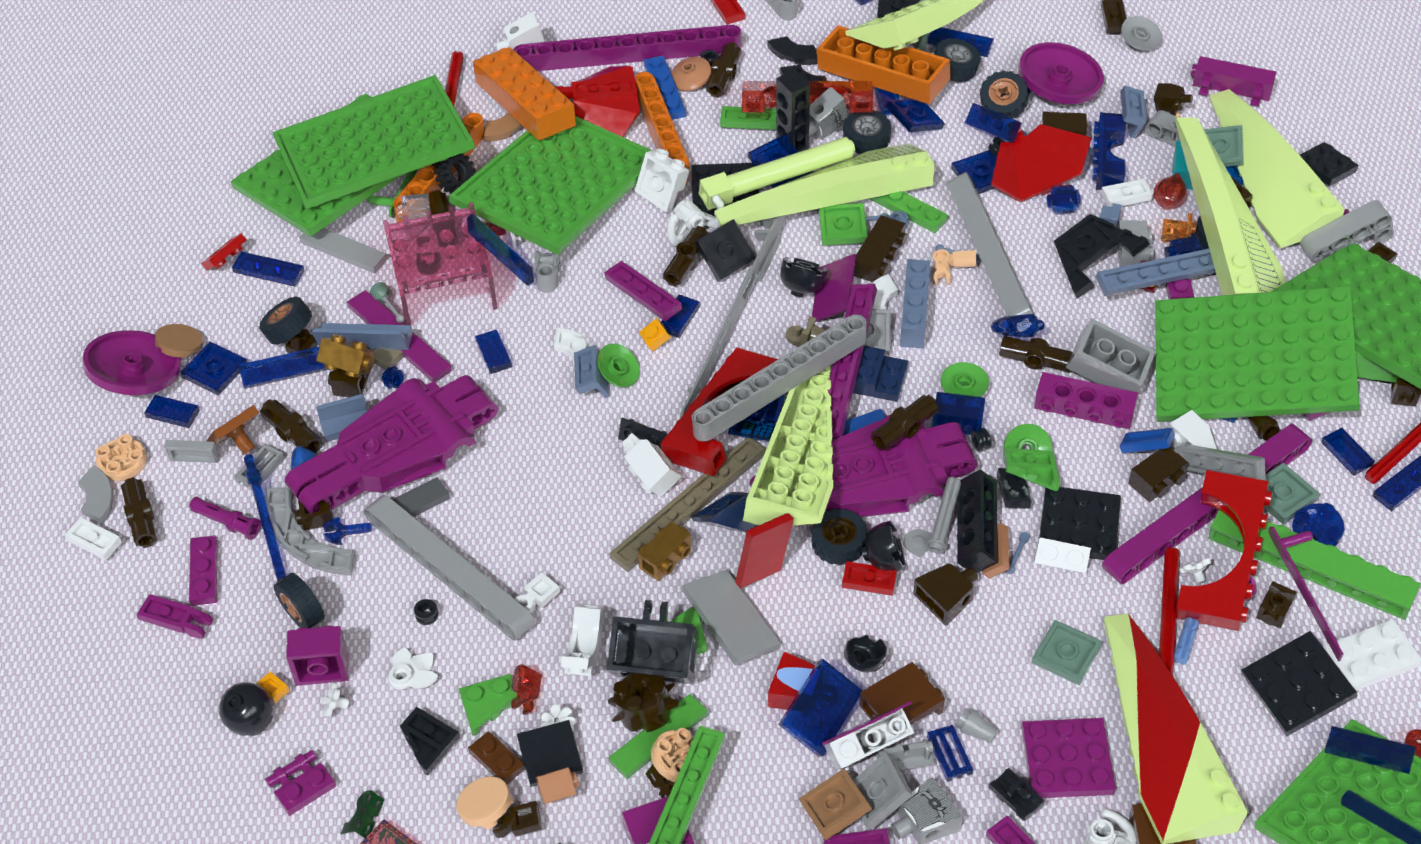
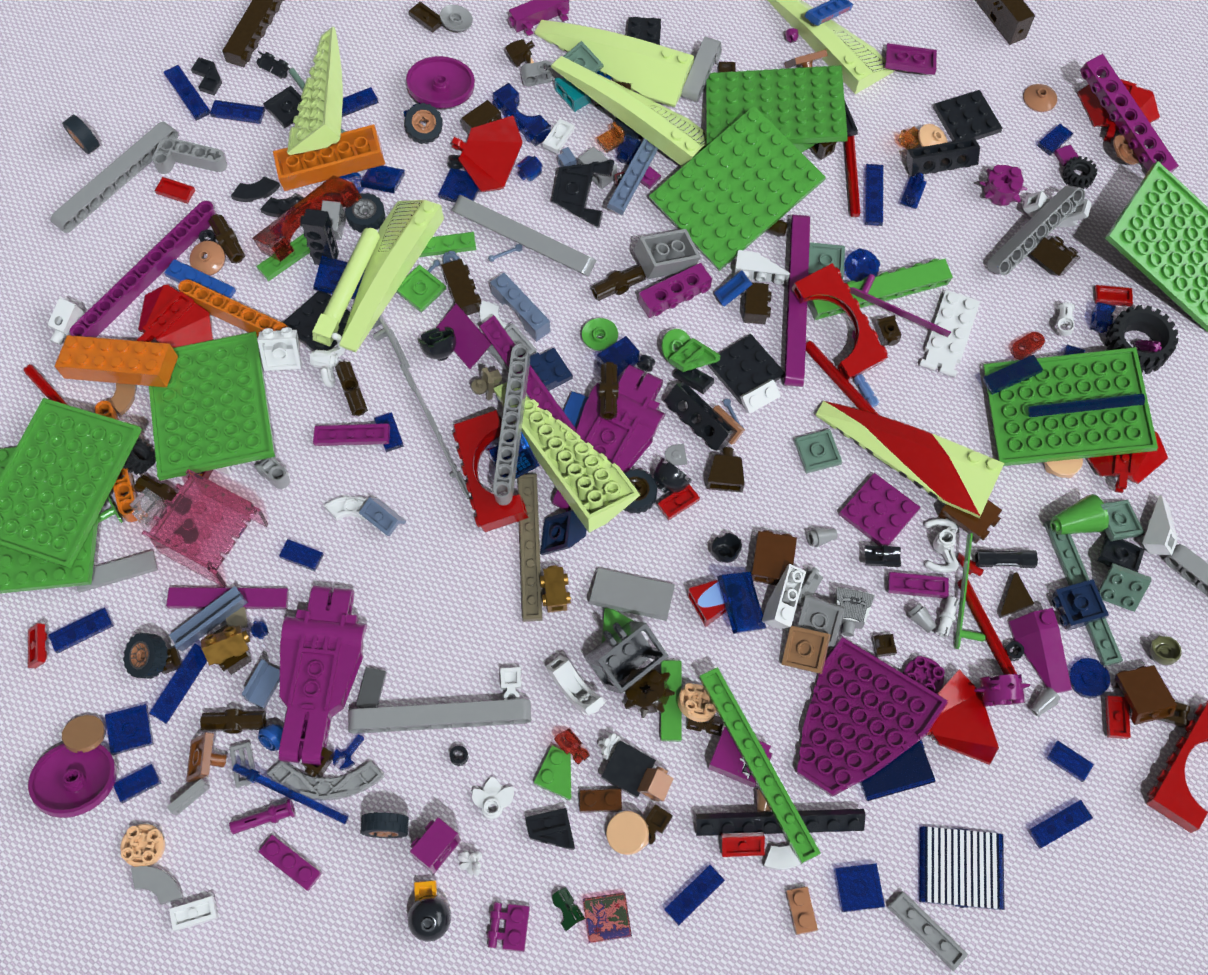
camera: 50 degrees left, 15 degrees up
(138, 512) = (203, 868): dark brown piece -> none
(173, 616) = (308, 909): magenta hinge -> none
(382, 293) = (183, 580): hinge -> none
(500, 249) = (239, 486): clear blue tile -> none
(618, 365) = (393, 497): bright green dish -> none
(641, 431) = (451, 531): black hinge -> none
(650, 465) = (485, 544): white hinge -> none
(654, 334) = (390, 457): light orange plate -> none
(725, 250) = (373, 365): black plate -> none
(764, 550) = (618, 539): red tile -> none
(866, 723) = (781, 590): magenta window -> none
(943, 260) = (504, 264): light nougat bar -> none
(944, 516) = (679, 428): light grey axle -> none
(956, 772) = (835, 576): clear blue tile -> none
(963, 58) = (367, 114): black wheel -> none
(993, 122) = (438, 148): clear blue tile -> none
(1017, 325) = (595, 274): clear blue animal -> none
(1133, 109) = (508, 75): sand blue panel -> none
(1170, 192) = (581, 116): clear red hat -> none
(1196, 569) = (830, 343): white plant -> none
(1221, 461) = (790, 270): light grey tile -> none
(1299, 683) = (942, 366): black plate -> none
(1347, 451) = (829, 208): clear blue tile -> none

